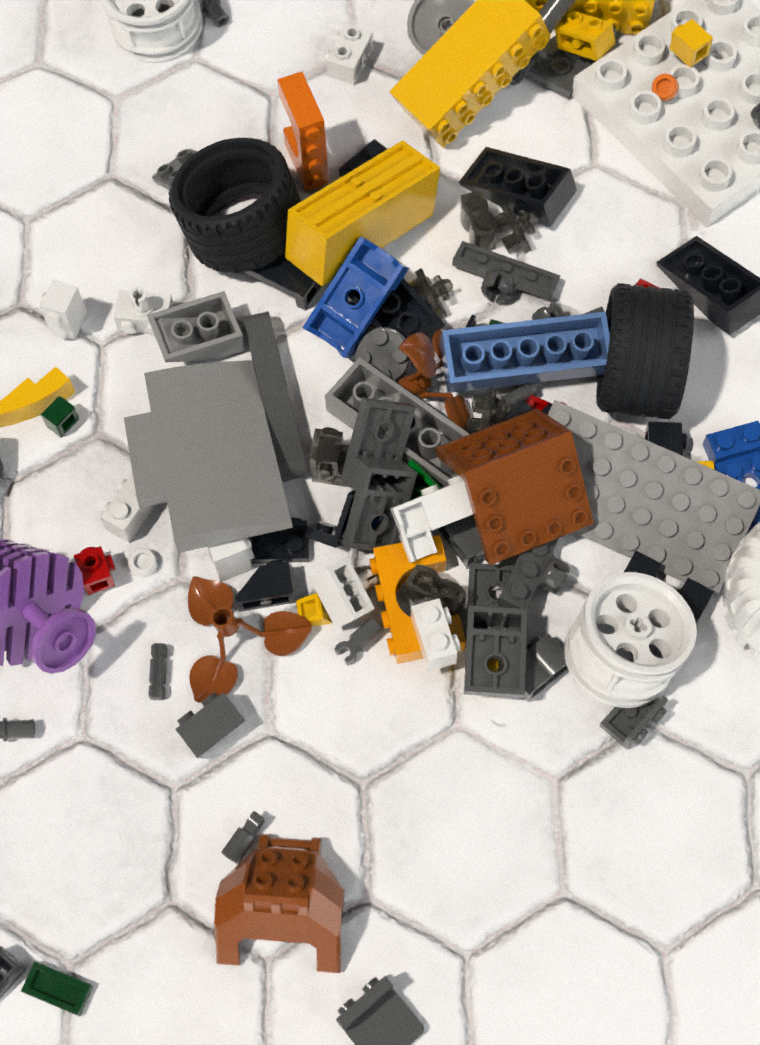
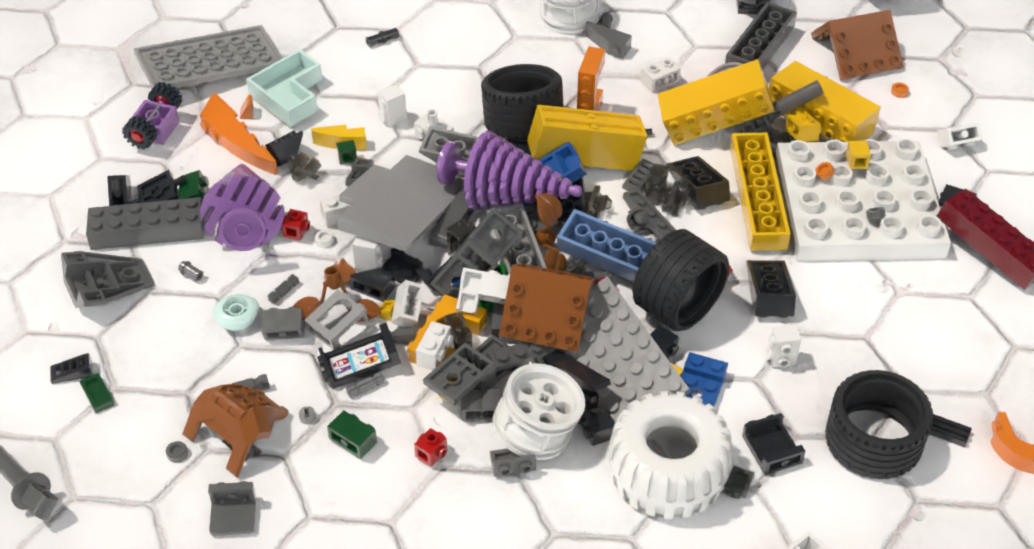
camera: 35 degrees right, 20 degrees down
(29, 477) = (302, 168): none -> clear smoke hips
(100, 435) = (358, 168): none -> dark grey slope
(134, 748) = (236, 311): none -> light aqua hat
(234, 993) = (176, 451): none -> dark grey tile
(246, 37) = (614, 41): none -> dark grey slope
(251, 646) = (331, 337): none -> light grey panel
(298, 339) = (500, 174): none -> medium lavender plant
(341, 831) = (312, 415): none -> light grey hinge
(344, 705) = (359, 358): none -> panel
(378, 735) = (365, 385): none -> axle
(430, 816) = (352, 434): none -> dark green brick
(447, 205) = (643, 167): none -> dark grey slope
(530, 775) = (431, 447): none -> red brick
(602, 157) = (759, 192): none -> yellow brick
(622, 552) = (582, 374): none -> black slope

